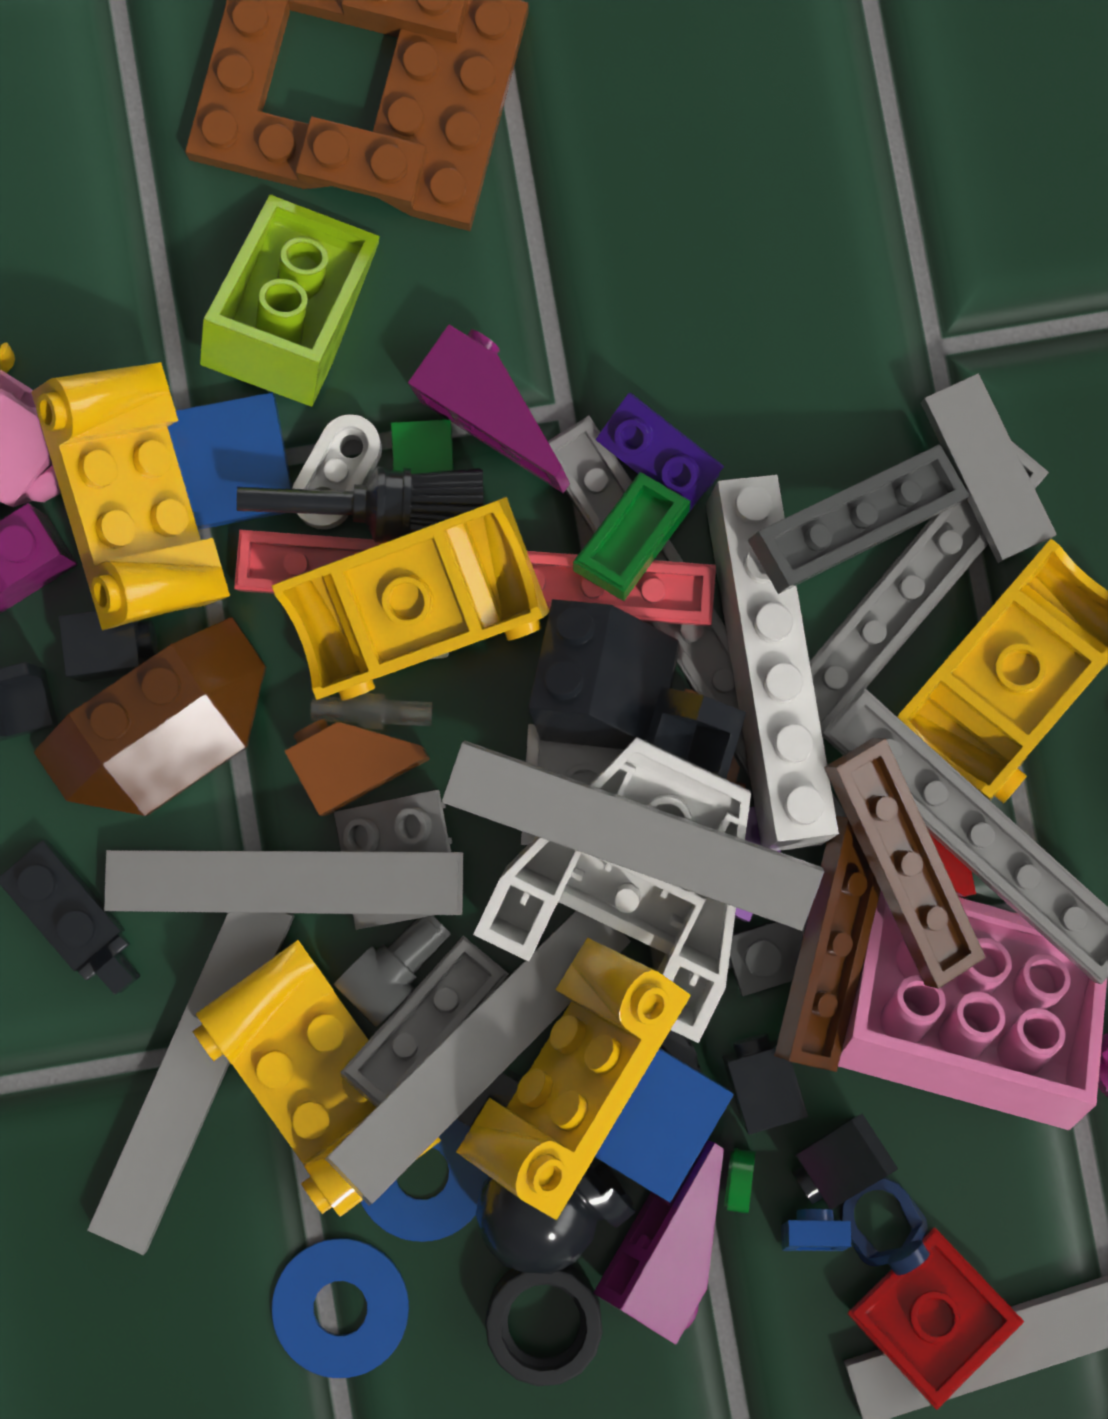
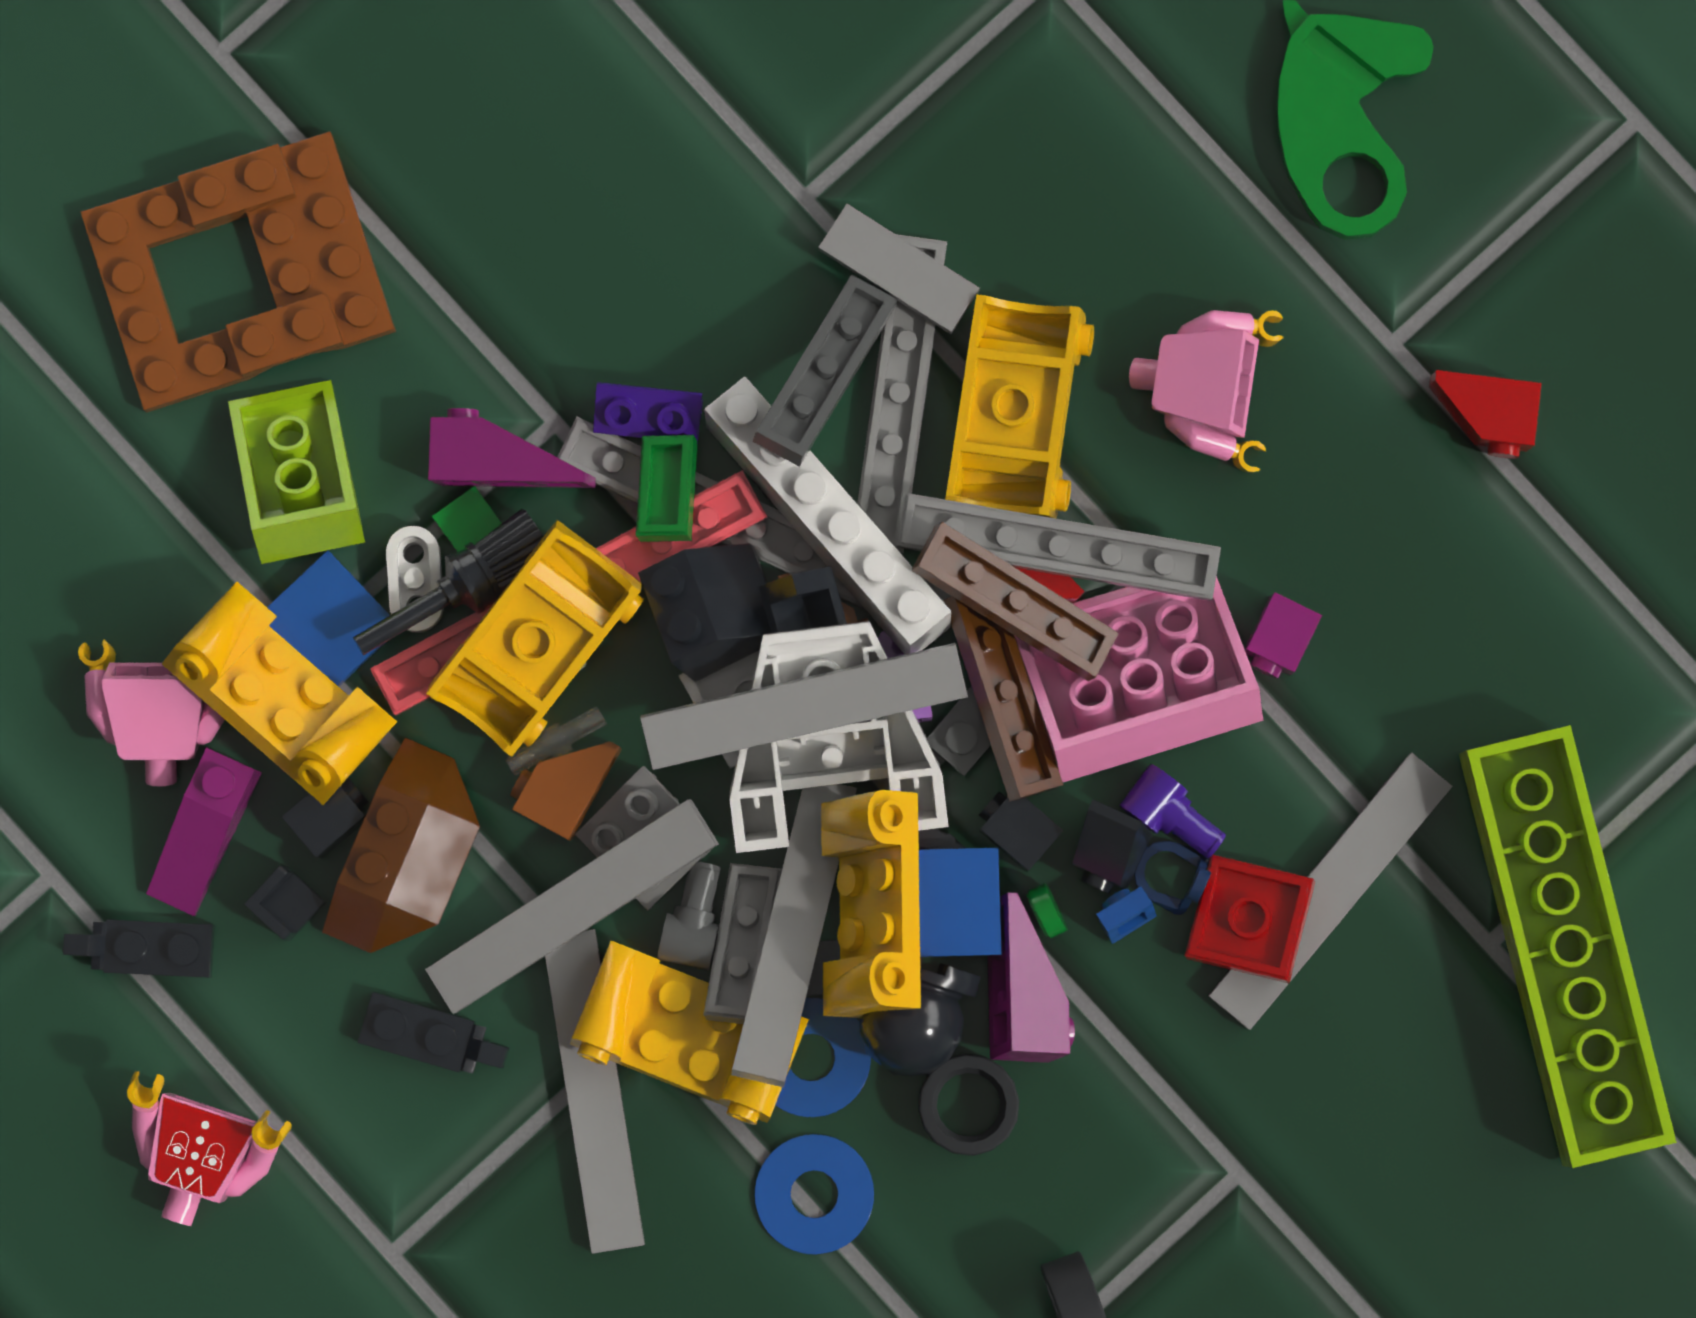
camera: 30 degrees left, 0 degrees up
(919, 1149) = (1163, 806): none -> dark purple pin

